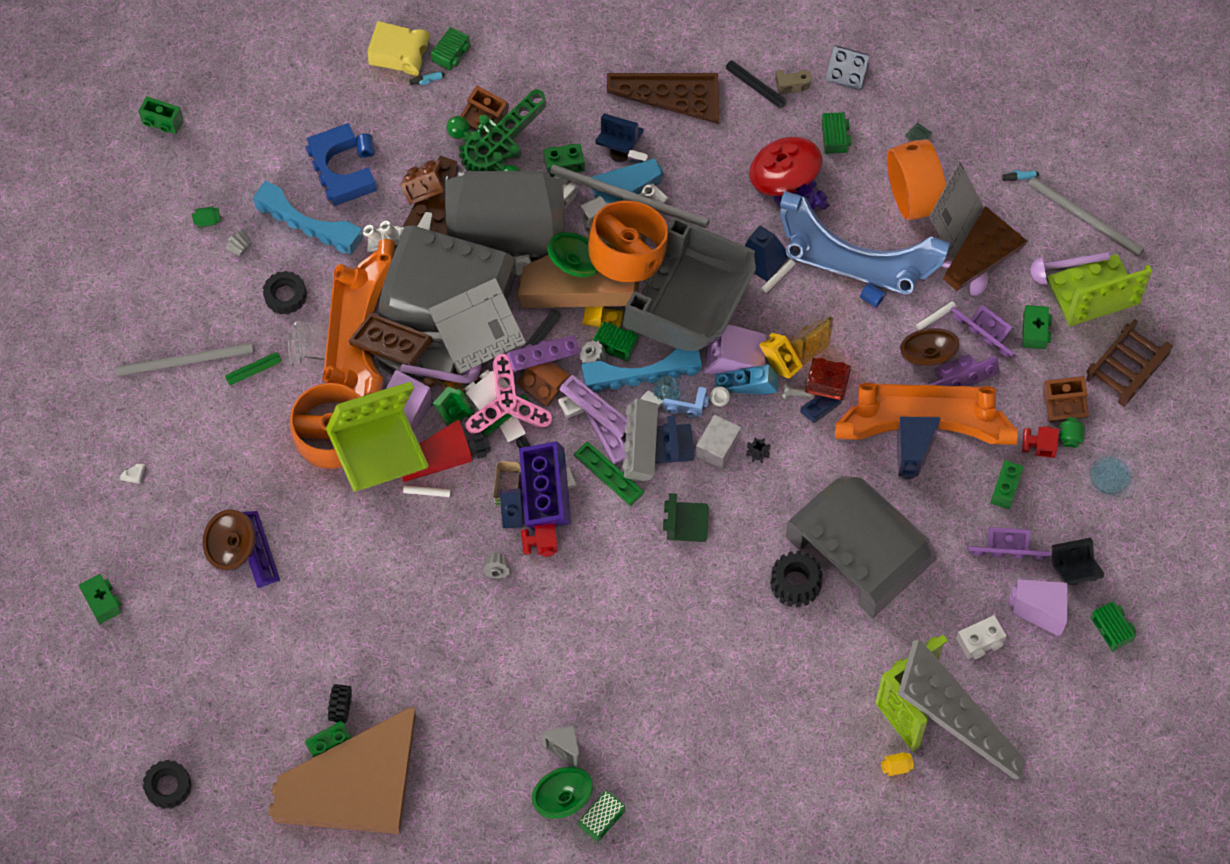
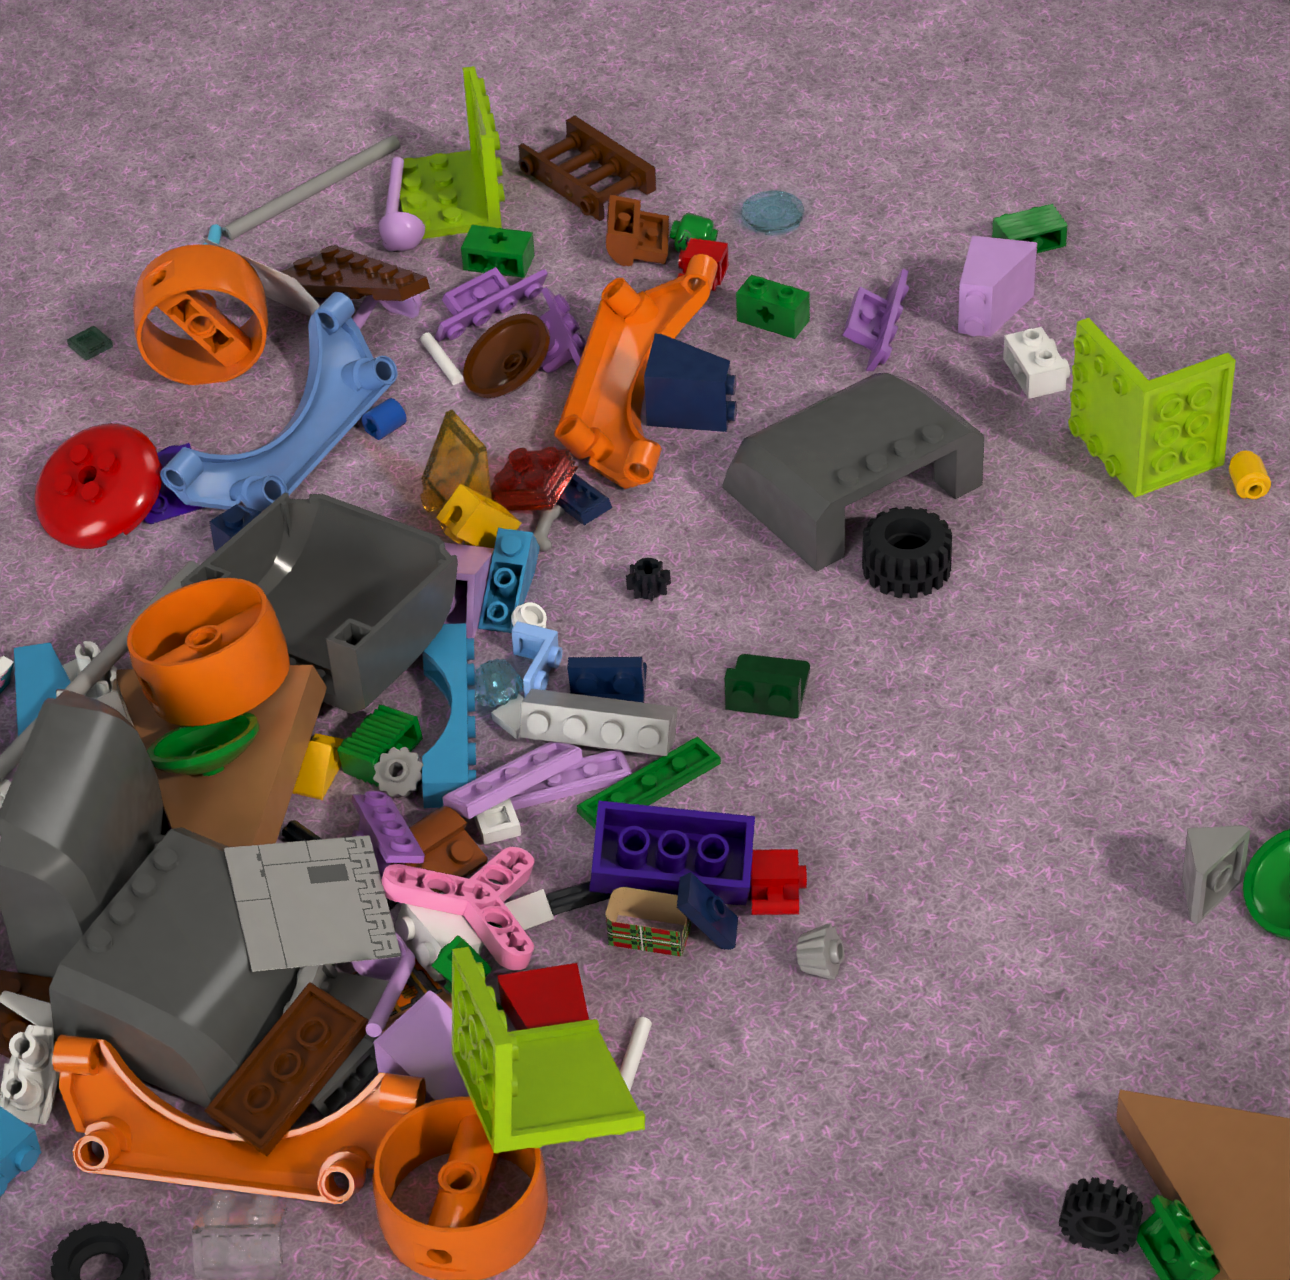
camera: 80 degrees left, 20 degrees down
(479, 445) = (554, 951): black gear -> none
(718, 441) = (624, 620): flat silver piece -> none
(835, 132) = (45, 428): green brick -> none
(941, 698) = (1189, 343): light grey wing -> none
(1076, 561) = (926, 253): black bracket -> none

